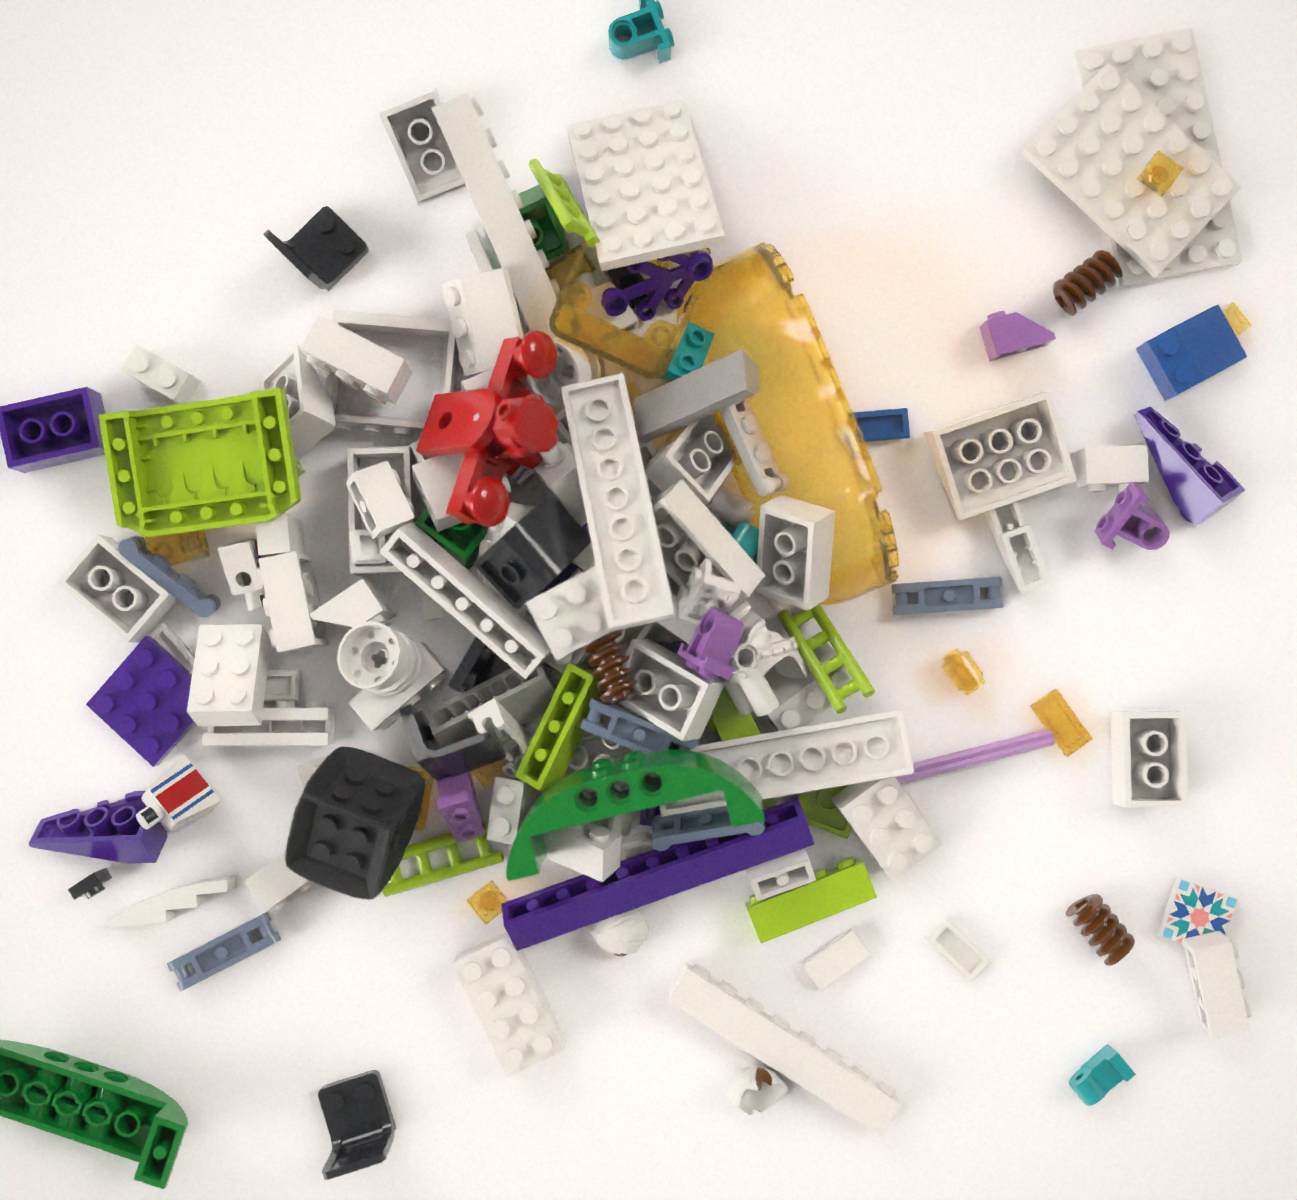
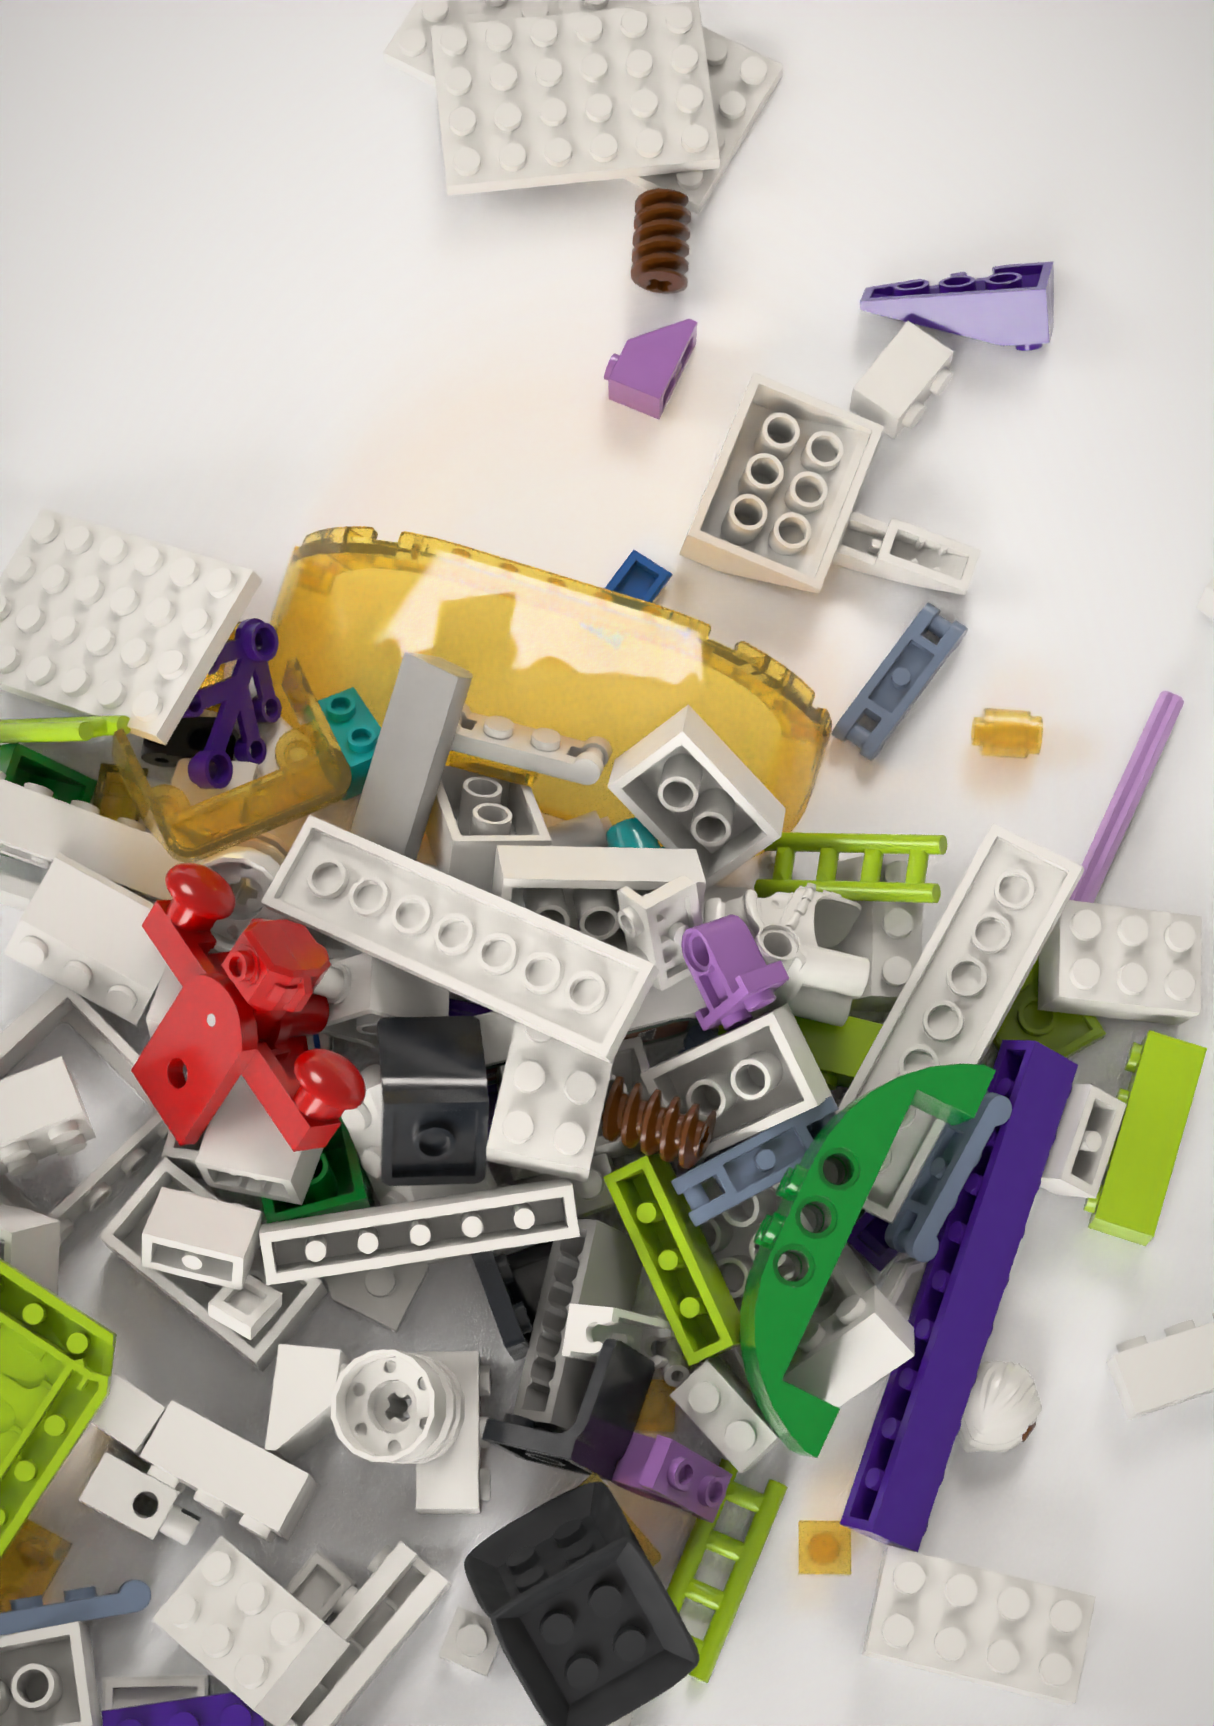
camera: 45 degrees left, 15 degrees down
(1062, 721) = (1151, 670): clear yellow tile -> none
(1131, 520) = (985, 405): medium lavender pin -> none
(1160, 173) = (607, 67): clear yellow plate -> none
(1191, 352) = (840, 197): blue slope -> none
(1236, 319) = (846, 129): clear yellow tile -> none

